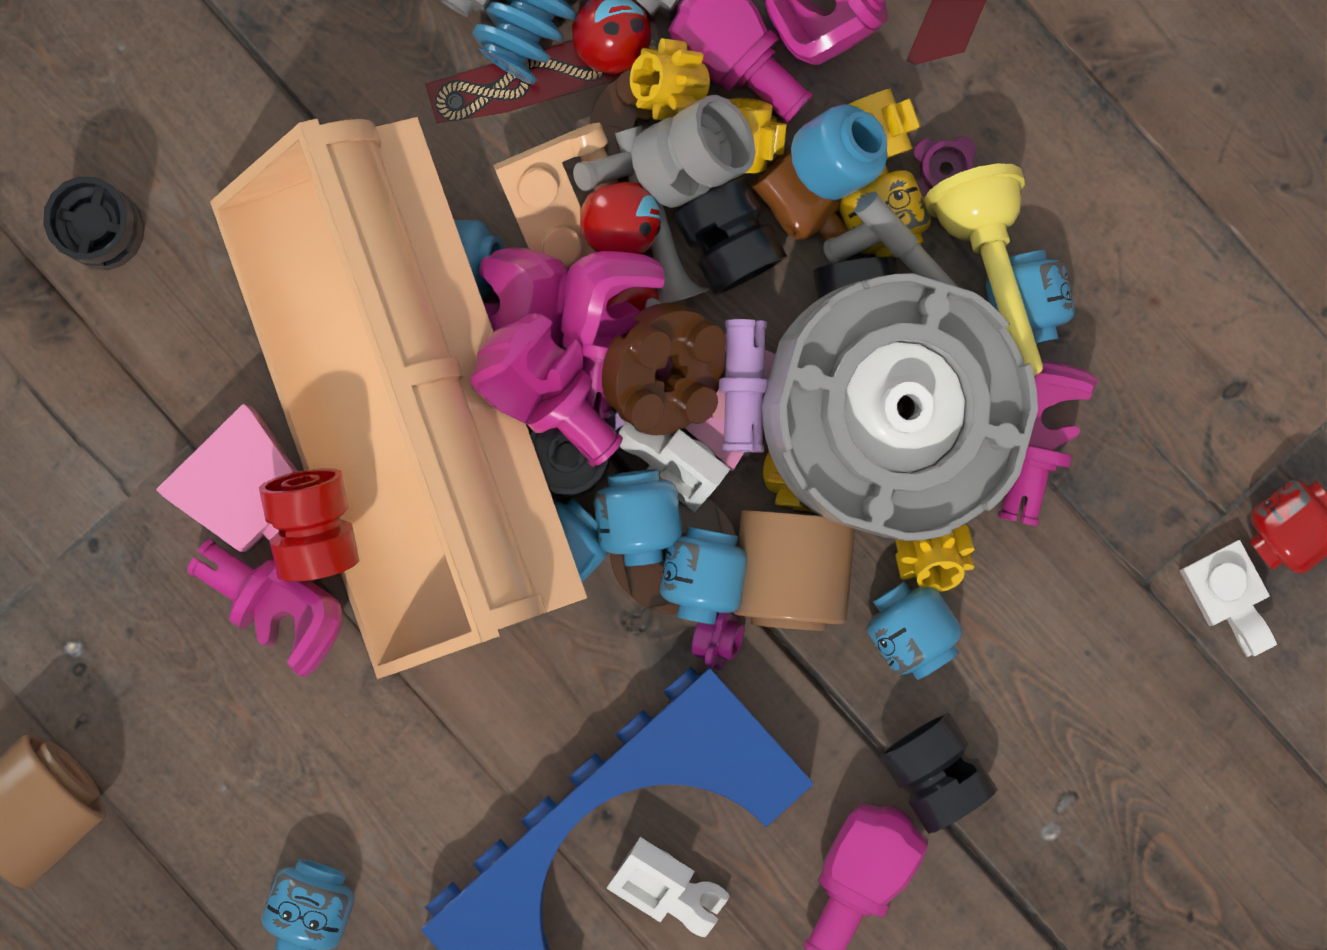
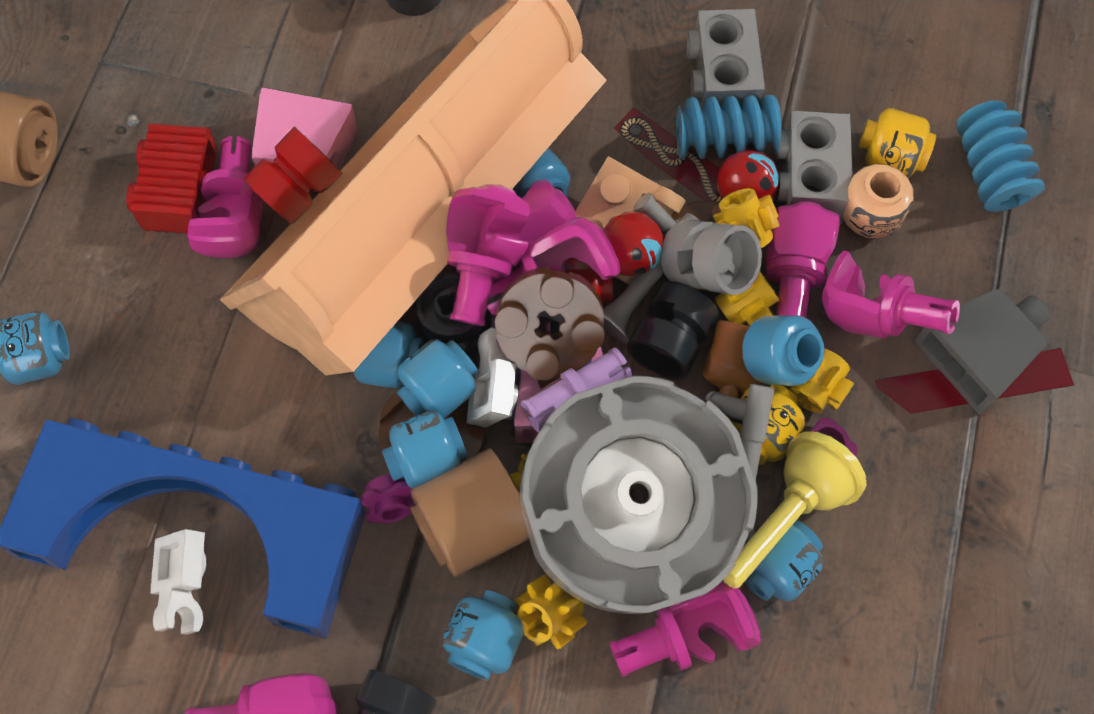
camera: 55 degrees right, 20 degrees down
(196, 647) = (170, 176): none -> red brick

